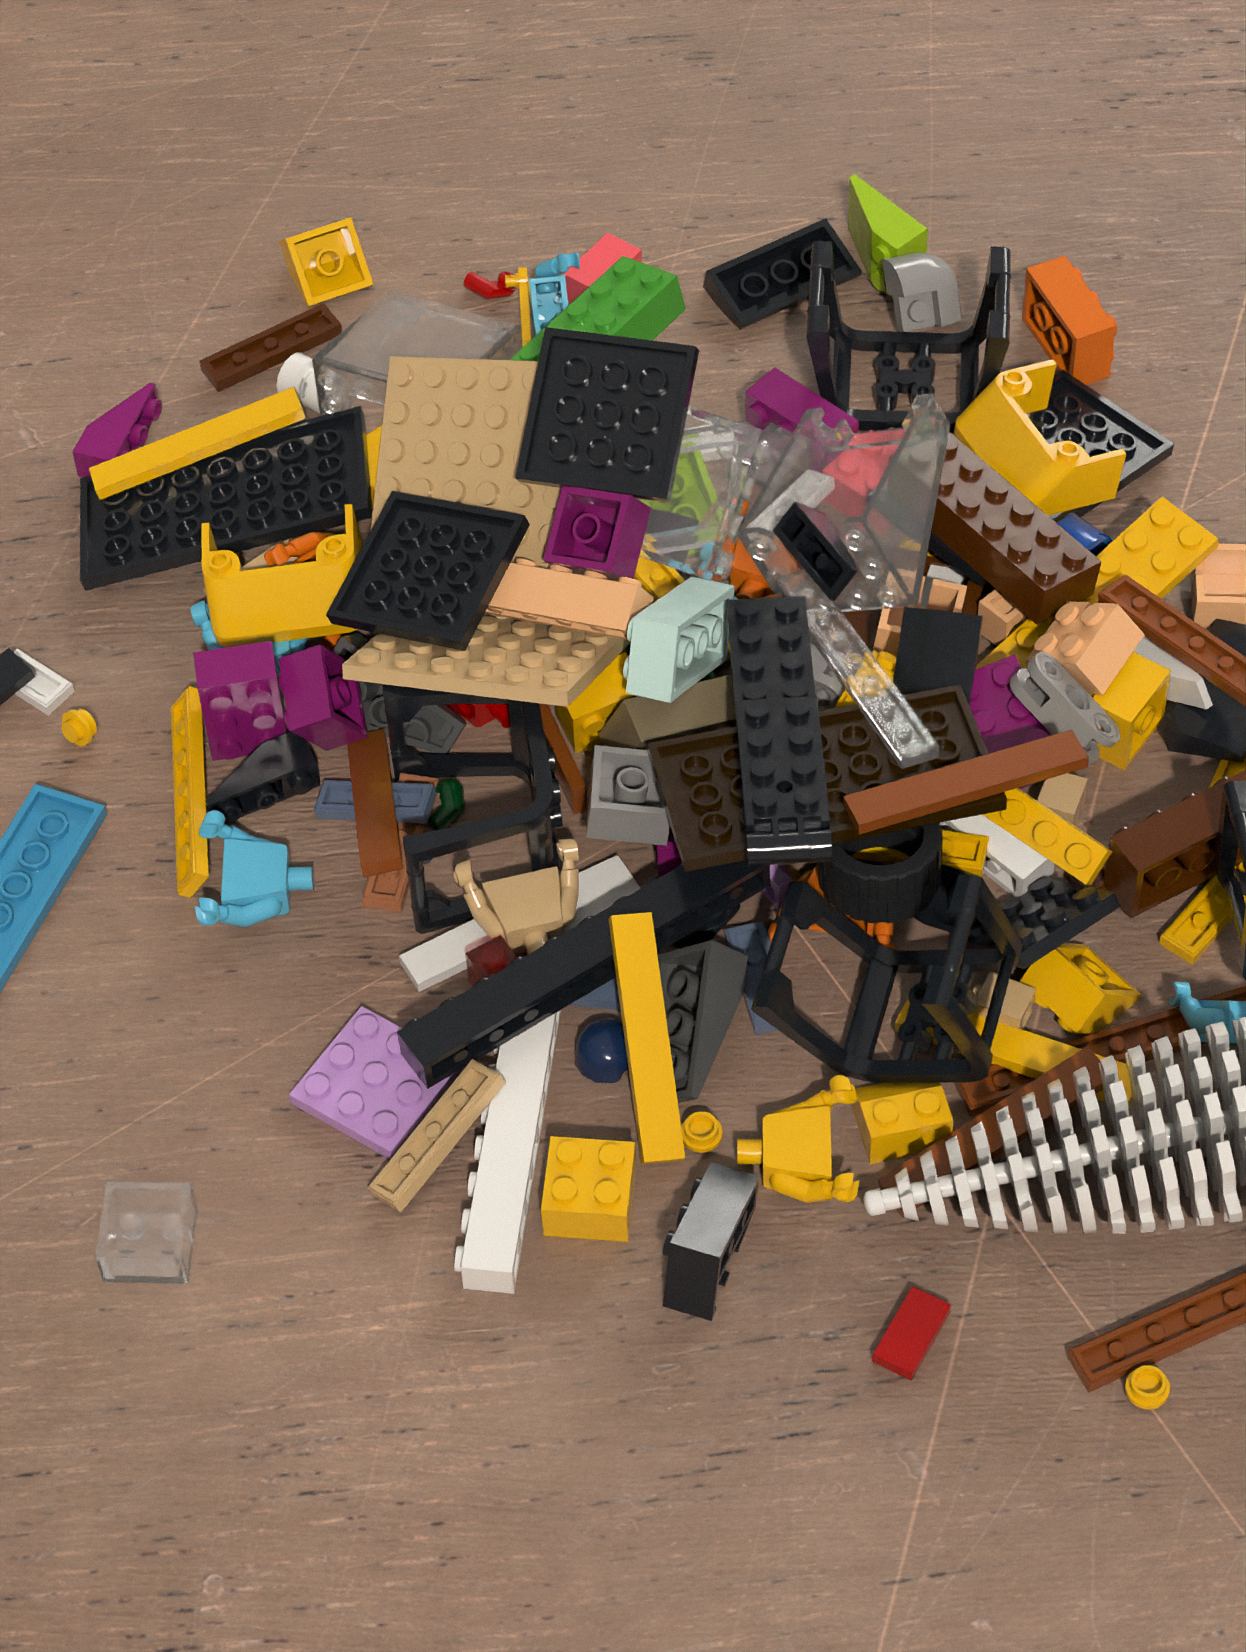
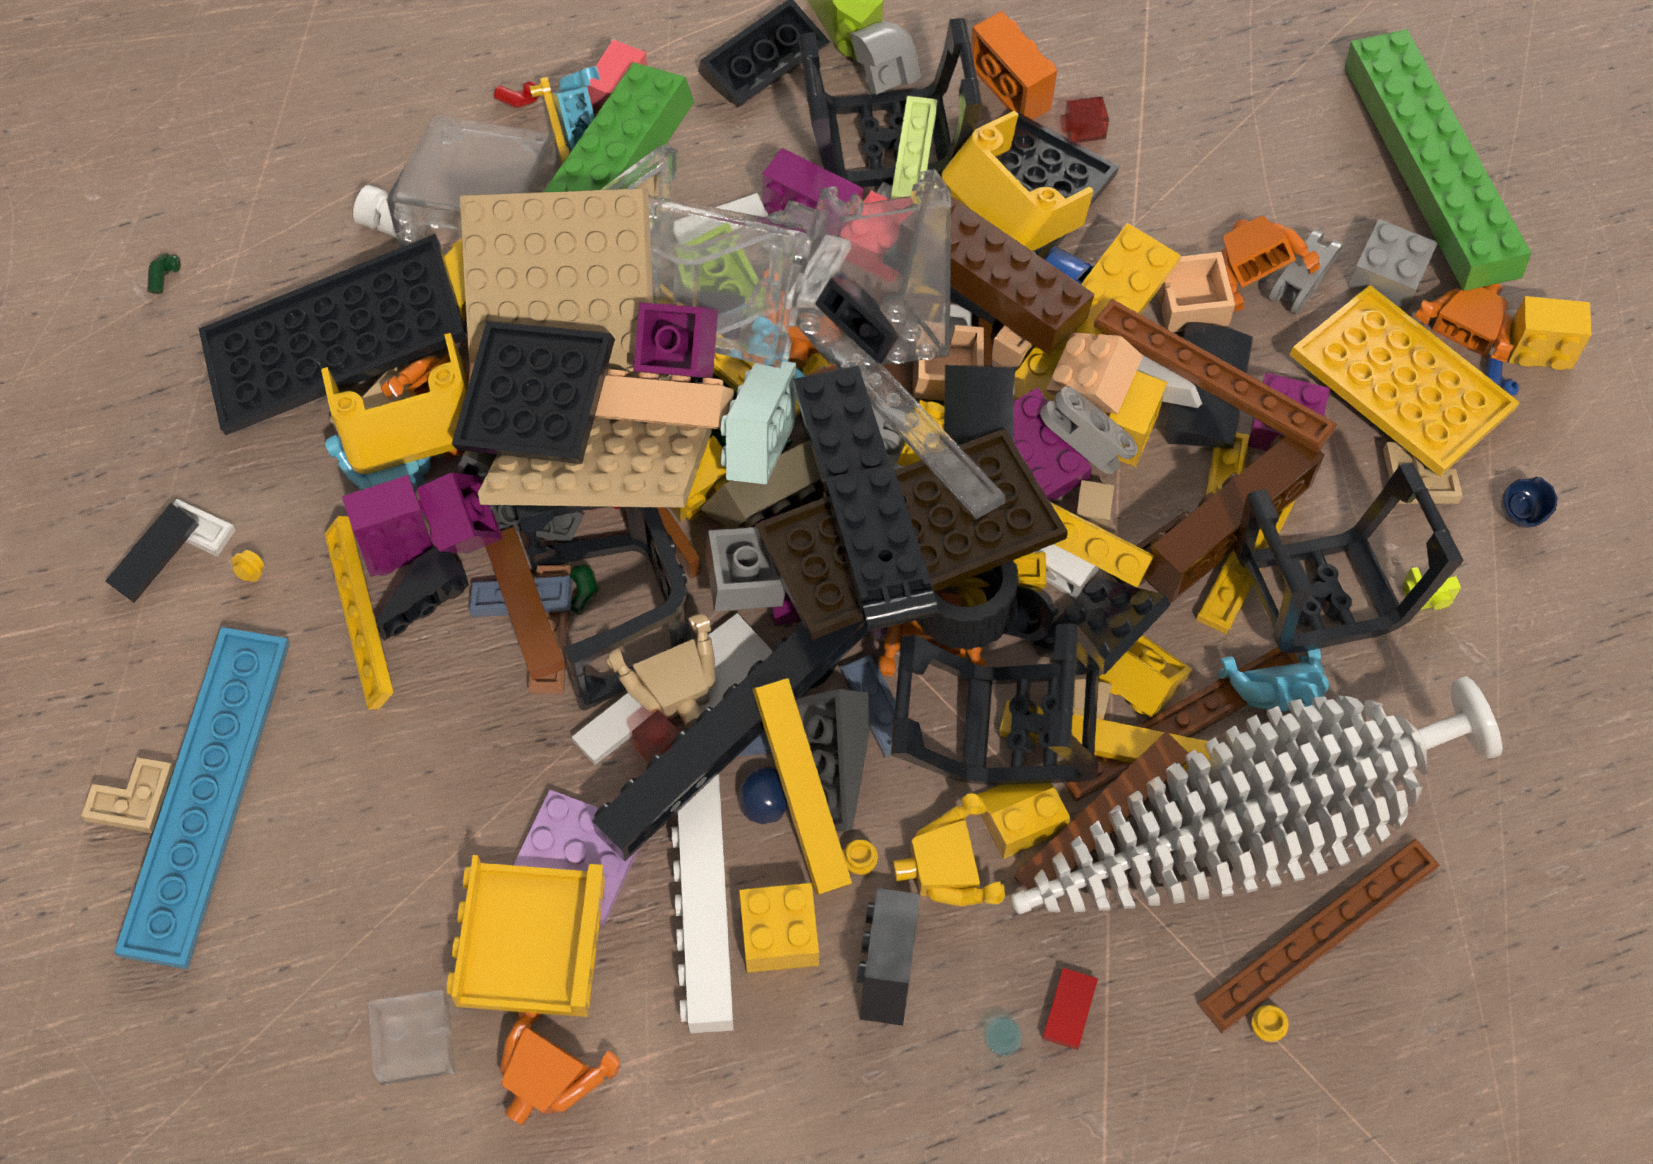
camera: 15 degrees left, 10 degrees up
(53, 412) = (158, 269): none -> dark green arm
(117, 430) = (220, 285): magenta slope -> none
(197, 443) = (296, 285): yellow tile -> none
(254, 877) = (432, 686): medium azure torso -> none
(270, 347) = (339, 180): reddish brown plate -> none
(289, 1296) = (546, 1074): none -> orange torso
(299, 1151) = (527, 939): none -> yellow panel
(326, 262) = (371, 92): yellow slope -> none
(436, 1135) = (641, 901): tan tile -> none
(607, 414) = (668, 234): black plate -> none
(825, 1349) = (1003, 1036): none -> clear light blue plate
(941, 372) = (914, 144): none -> yellowish green plate
(965, 781) = (1030, 522): dark orange tile -> none
(1145, 390) = (1085, 119): none -> clear red brick

